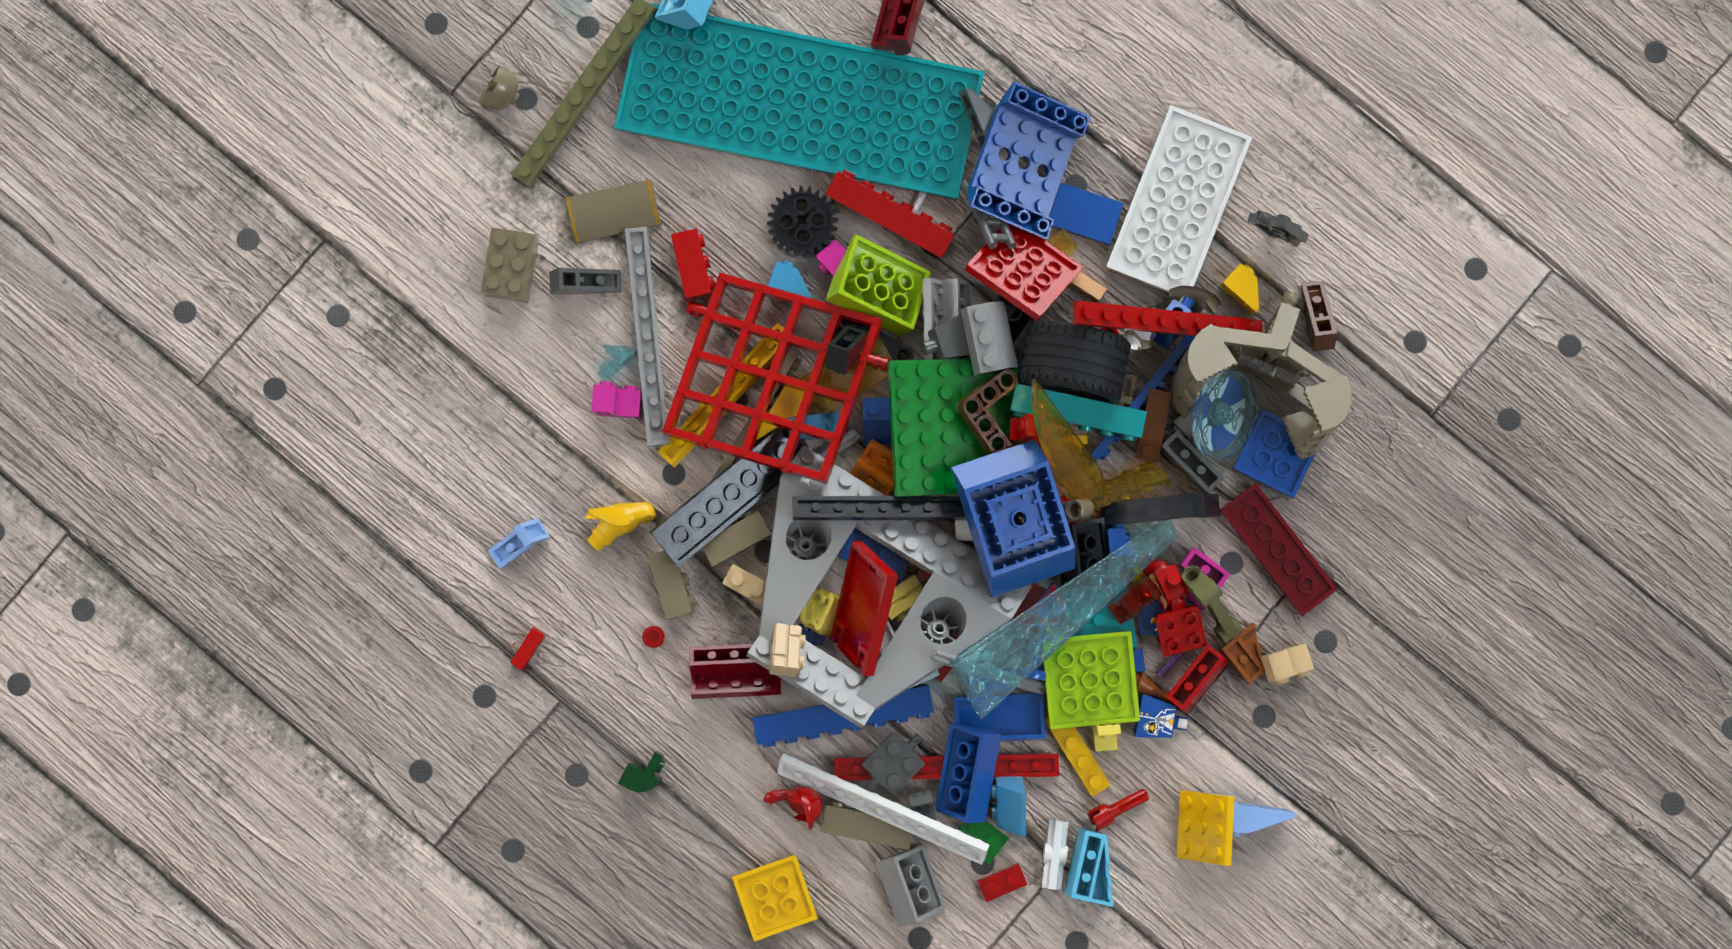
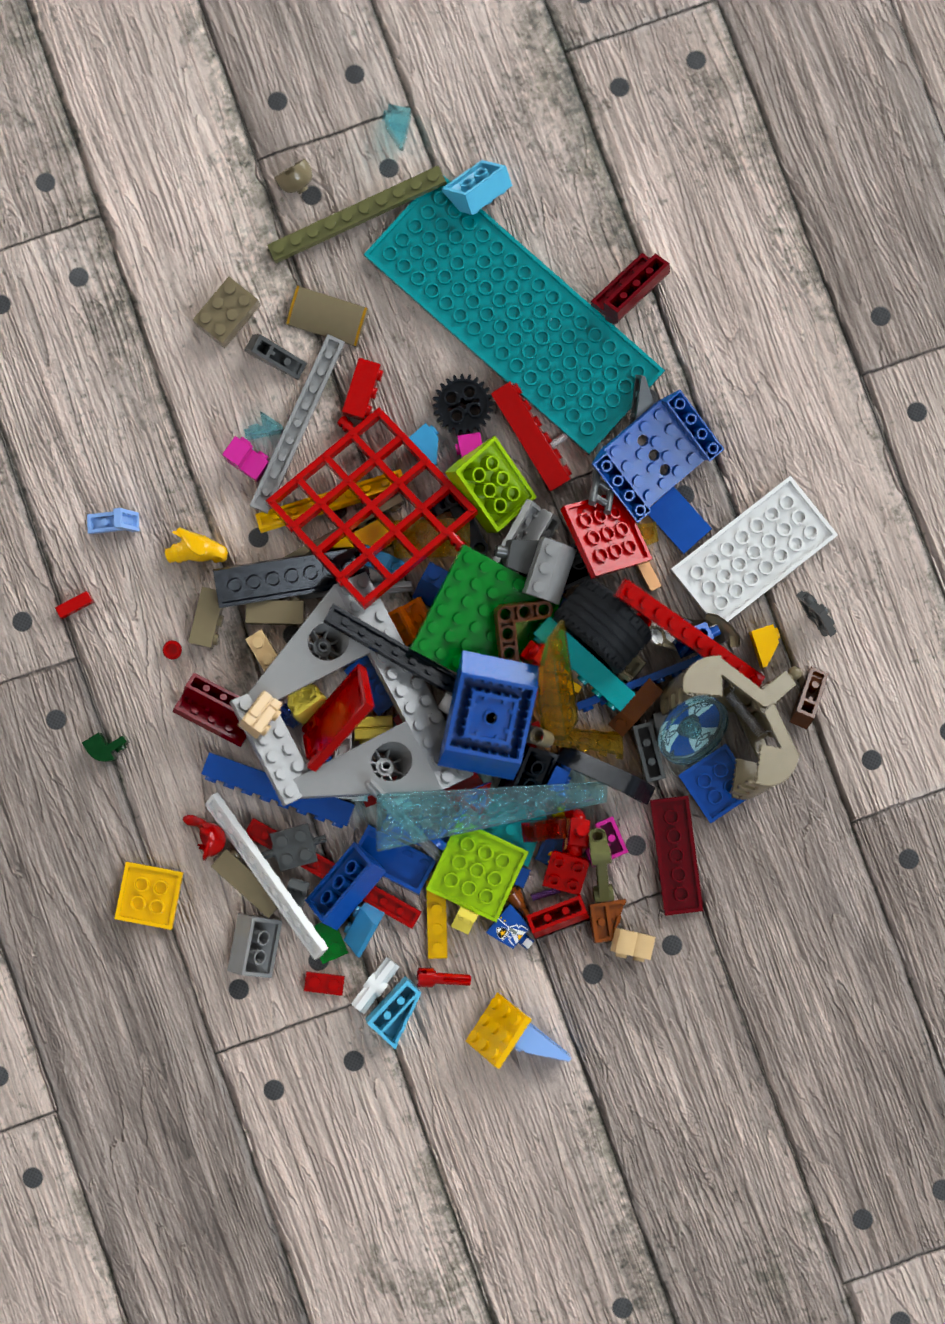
camera: 25 degrees right, 0 degrees up
(844, 350) = (436, 517): black slope -> none

